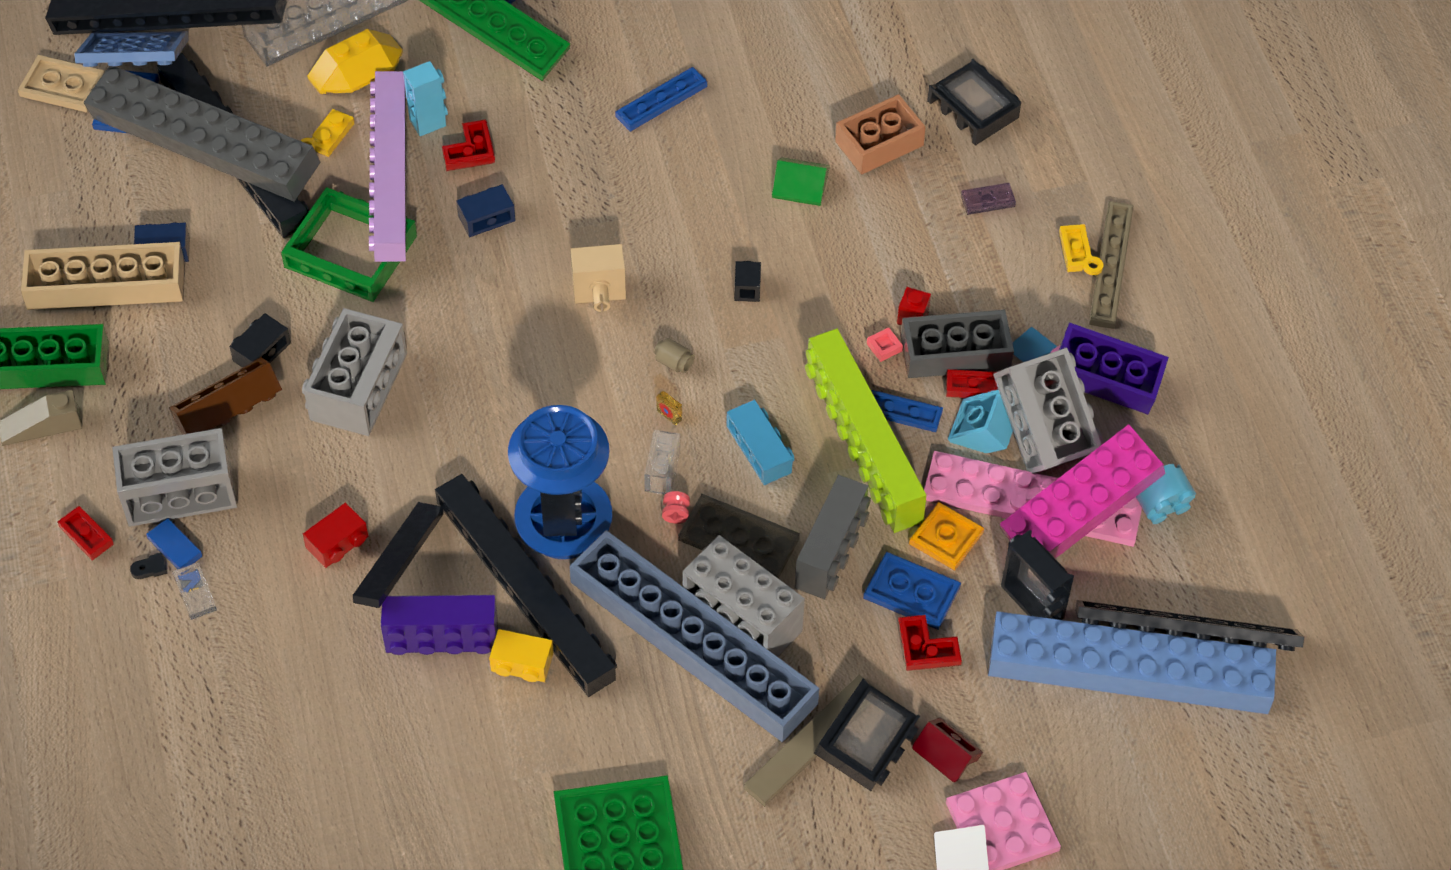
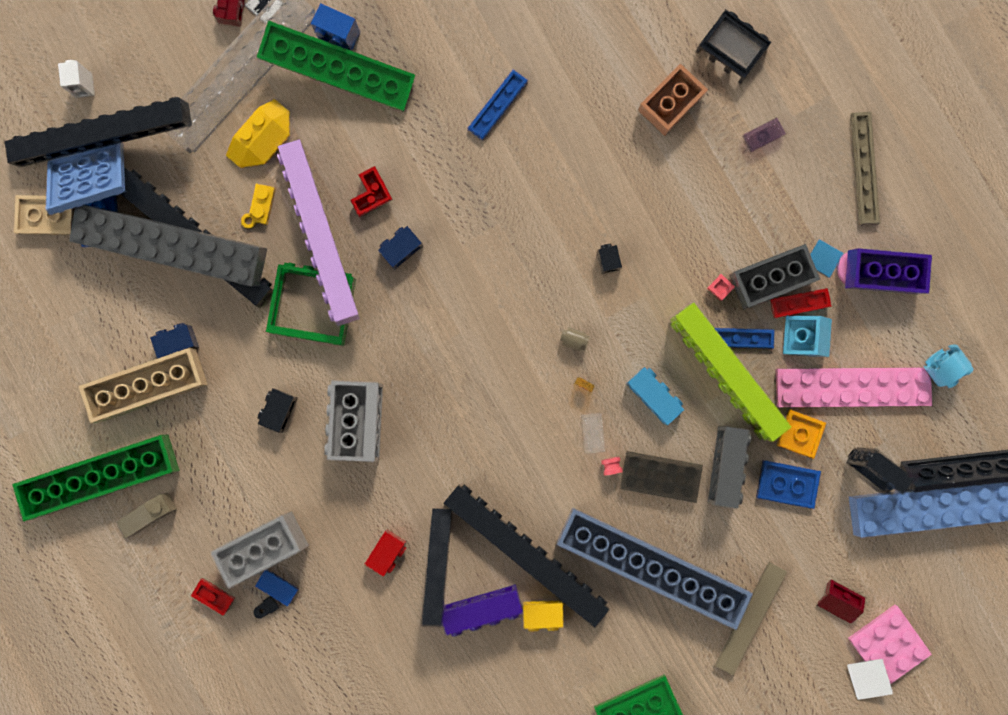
camera: 10 degrees left, 30 degrees up
(194, 591) = (303, 618): clear tile -> none
(226, 398) = (270, 466): reddish brown brick -> none
(425, 98) = (326, 165): medium azure brick -> none
(559, 459) = (539, 502): blue brick -> none
(598, 275) = (502, 290): tan brick -> none
(746, 595) = (683, 538): light grey brick -> none
(800, 181) = (622, 153): green slope -> none
(867, 736) = (791, 612): window -> none
(913, 304) = (735, 252): red brick -> none
(921, 651) = (810, 535): red brick -> none
(1048, 410) = (859, 329): light grey brick -> none
(1077, 250) = (839, 165): yellow hinge -> none
(1087, 493) = (898, 395): dark pink brick -> none

